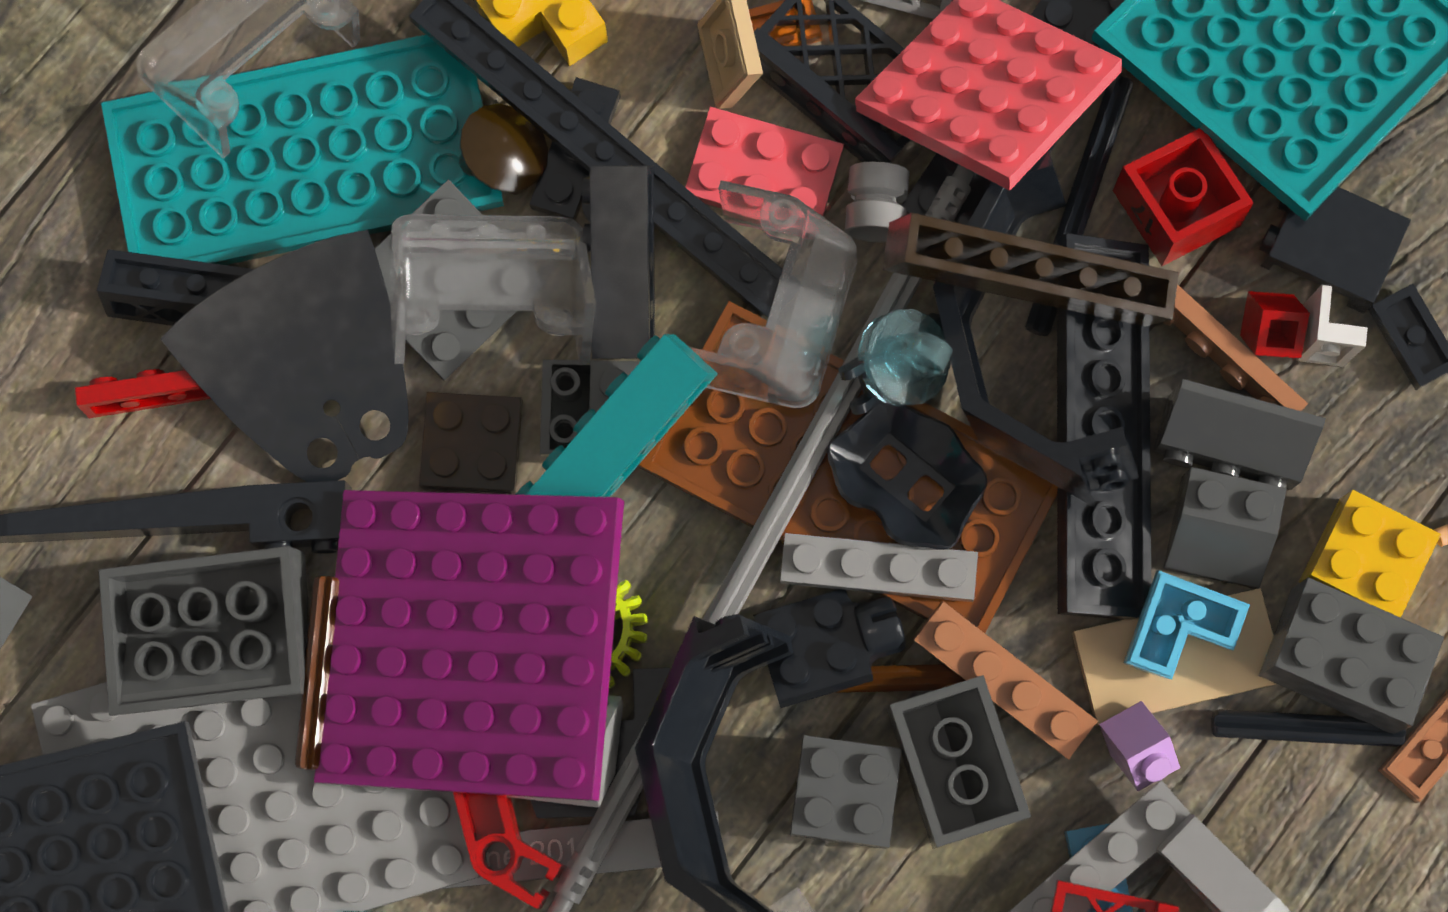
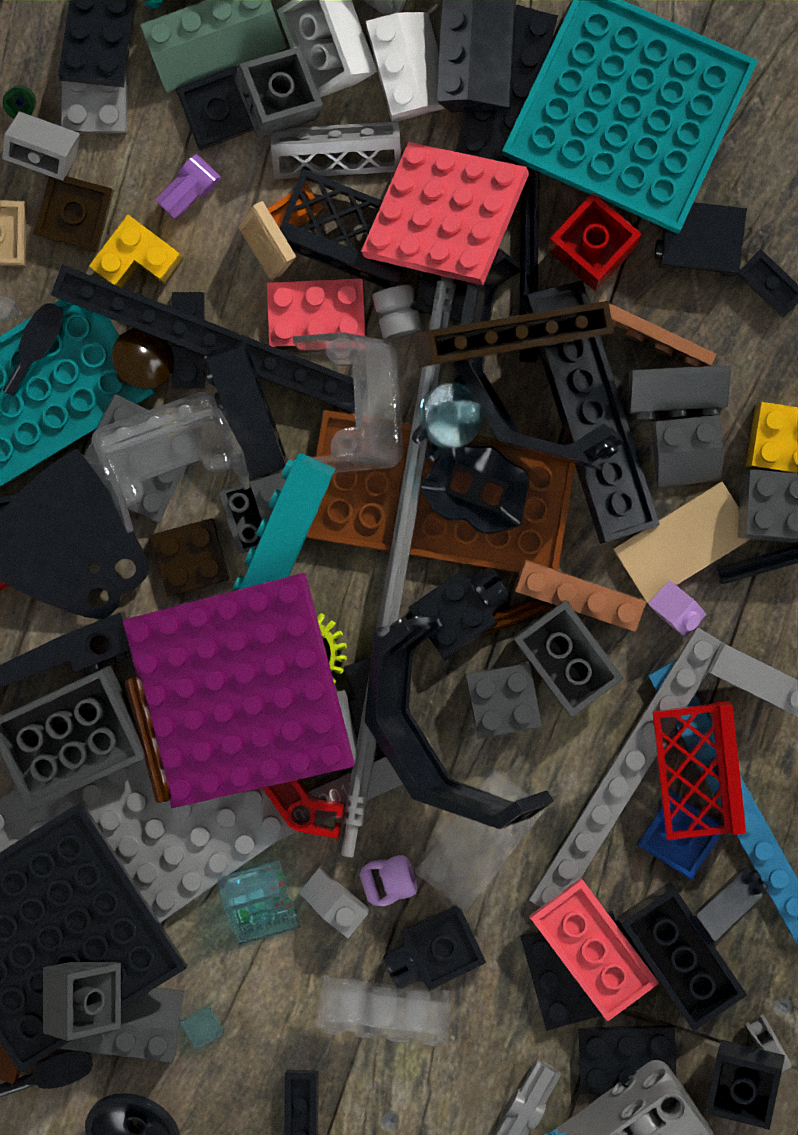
camera: 20 degrees left, 10 degrees up
(365, 78) = (35, 342): none -> black piece
(879, 567) = (477, 552): light grey plate -> none
(1178, 610) = (673, 517): medium azure brick -> none
(1274, 324) = (679, 307): red brick -> none
(1326, 341) = (710, 309): white panel -> none

